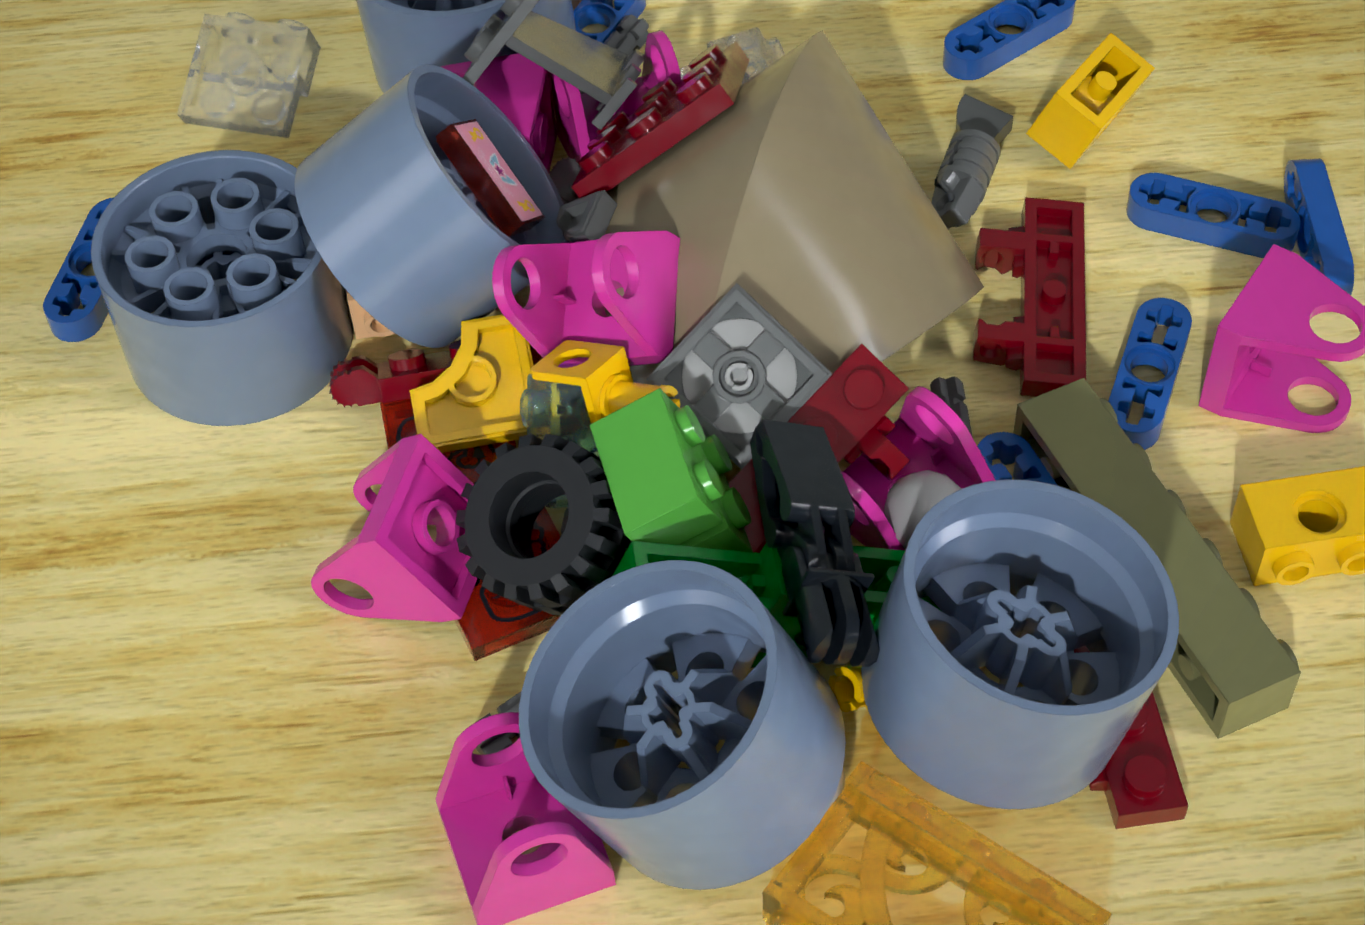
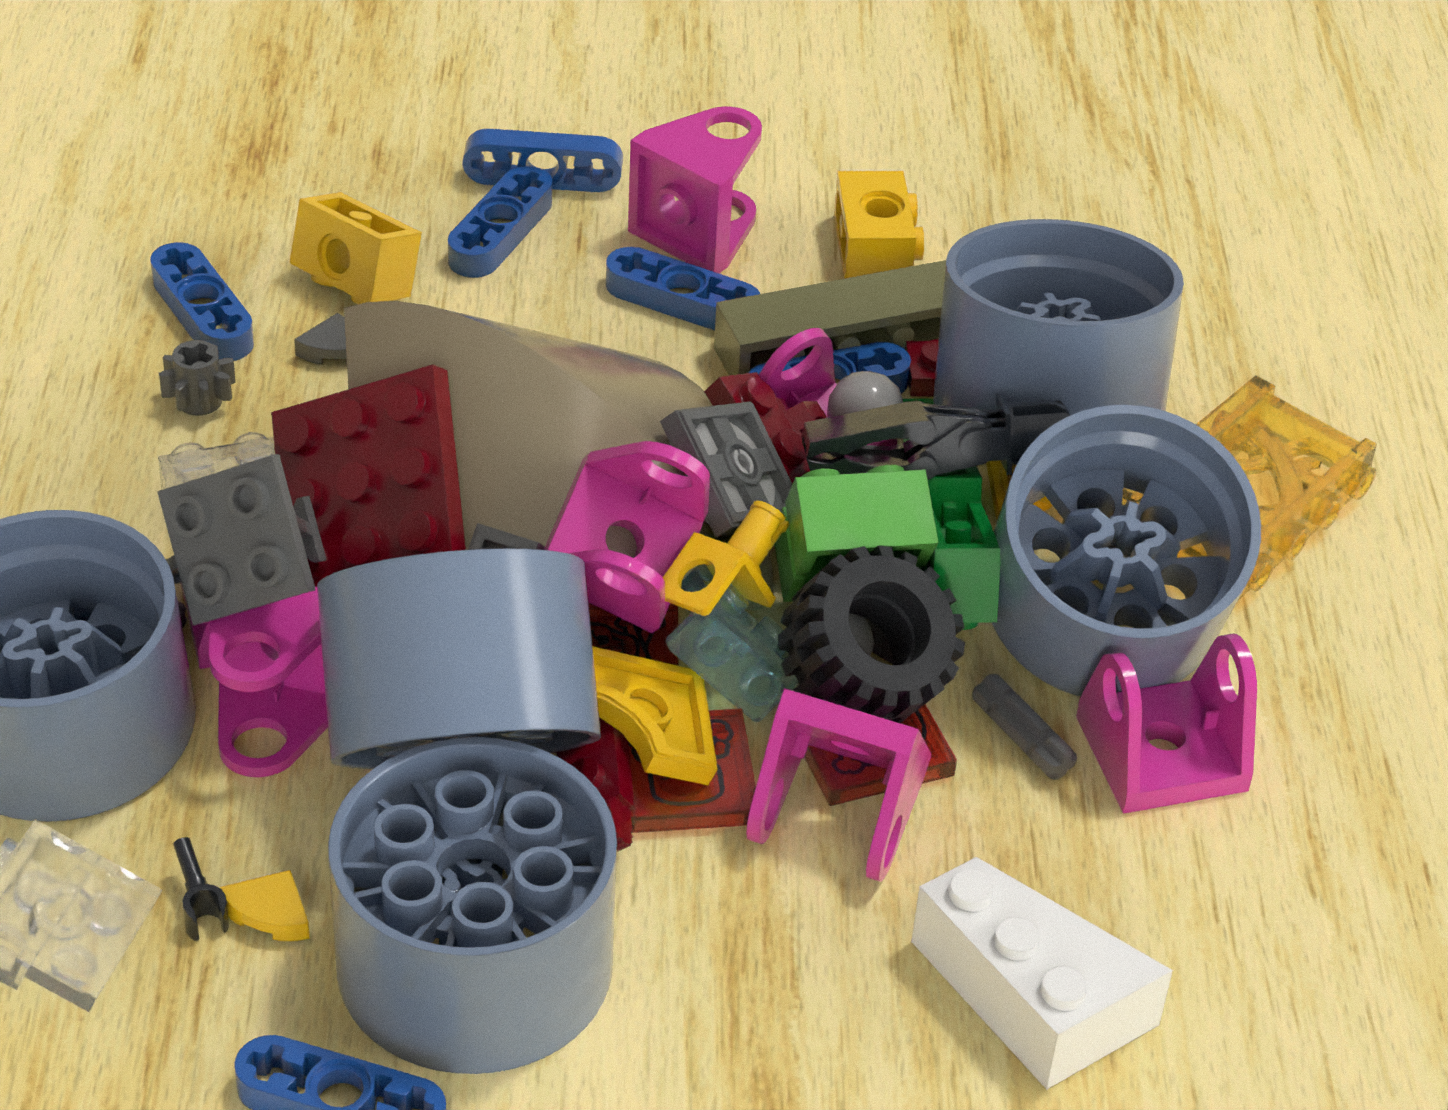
camera: 90 degrees left, 10 degrees down
(192, 709) = (1036, 970): none -> white wedge
(292, 148) = (200, 897): none -> black hand
(885, 39) = (197, 377): none -> dark grey gear
(1051, 331) = (643, 331): dark red hinge -> none

